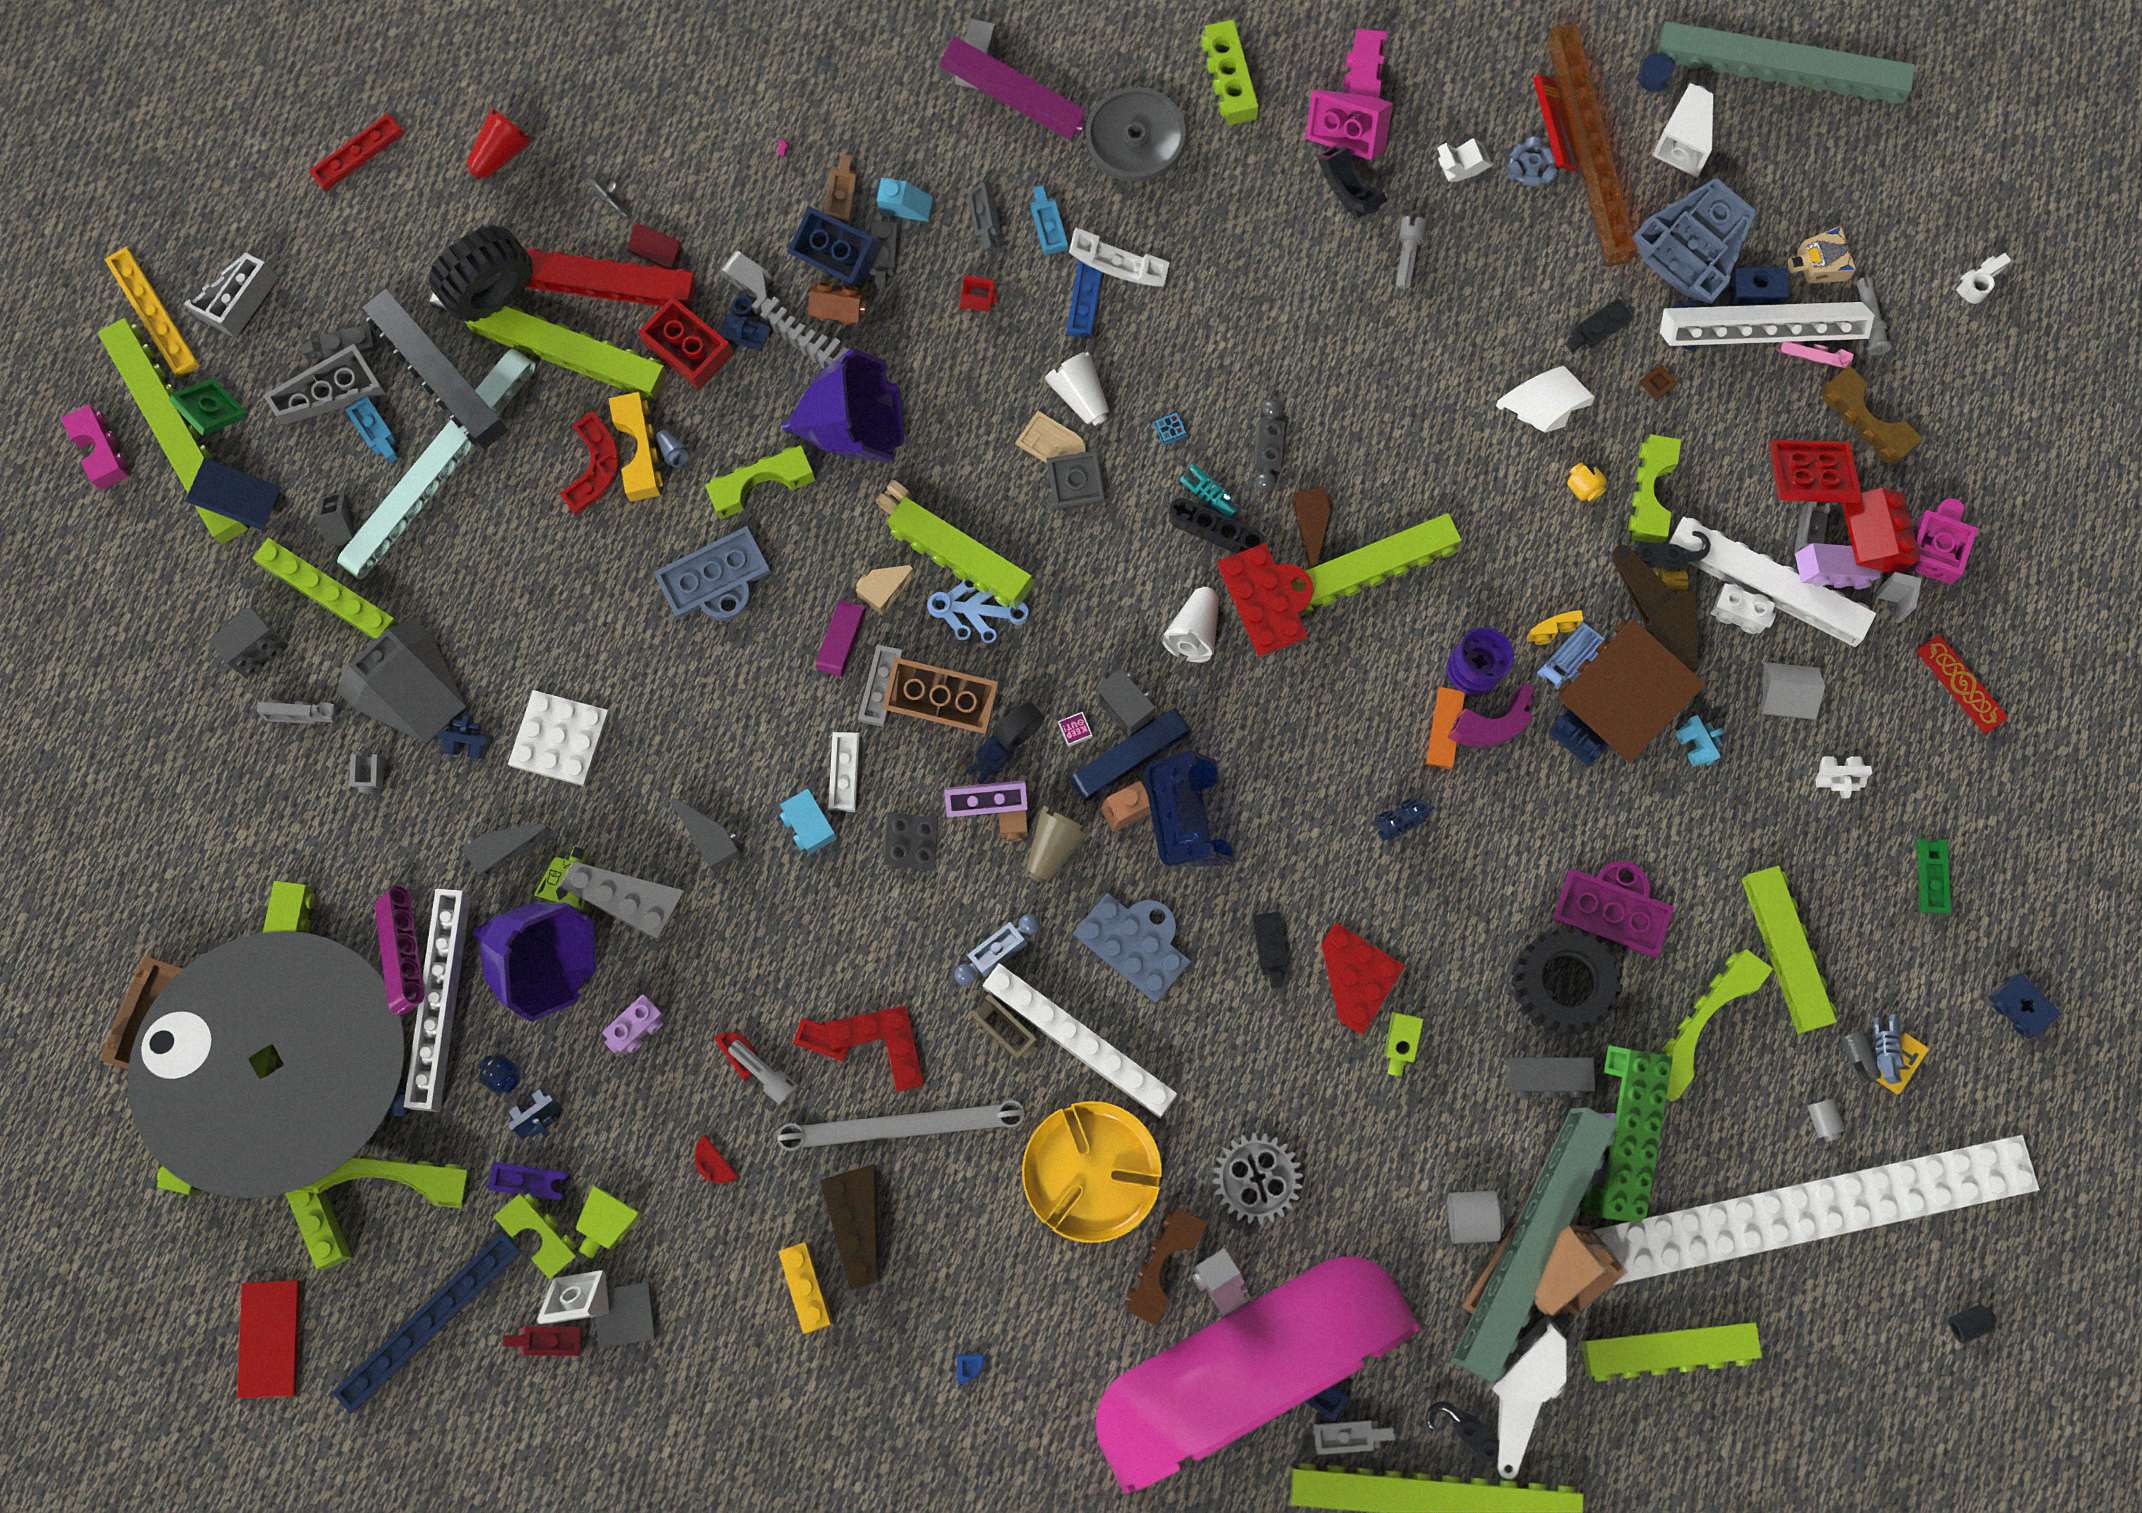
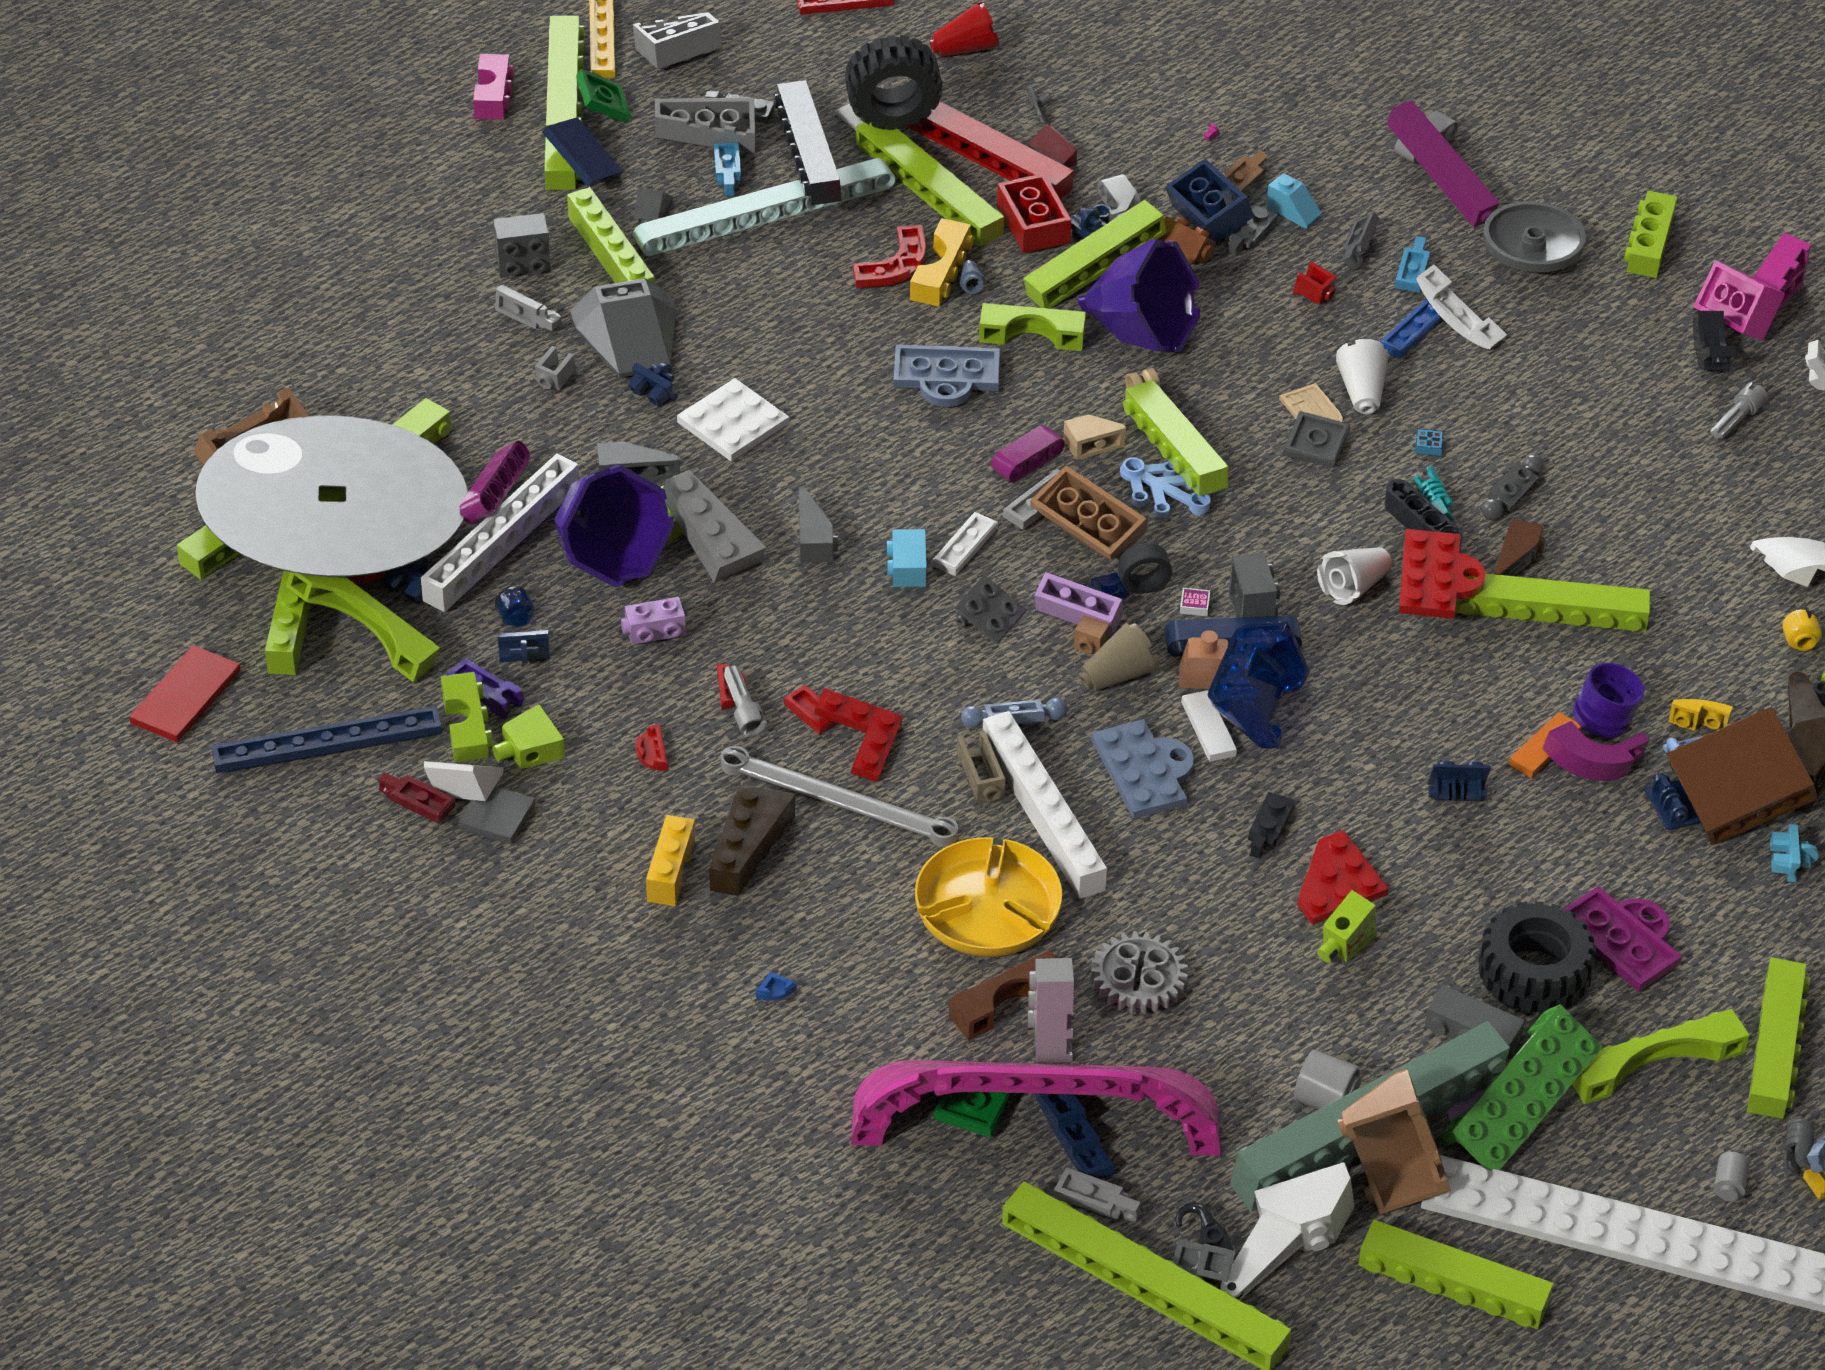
camera: 25 degrees right, 30 degrees down
(771, 370) = (1093, 255): none -> lime brick
(1175, 879) = (1208, 726): none -> white tile
(1476, 1458) = (1204, 1260): none -> dark grey slope

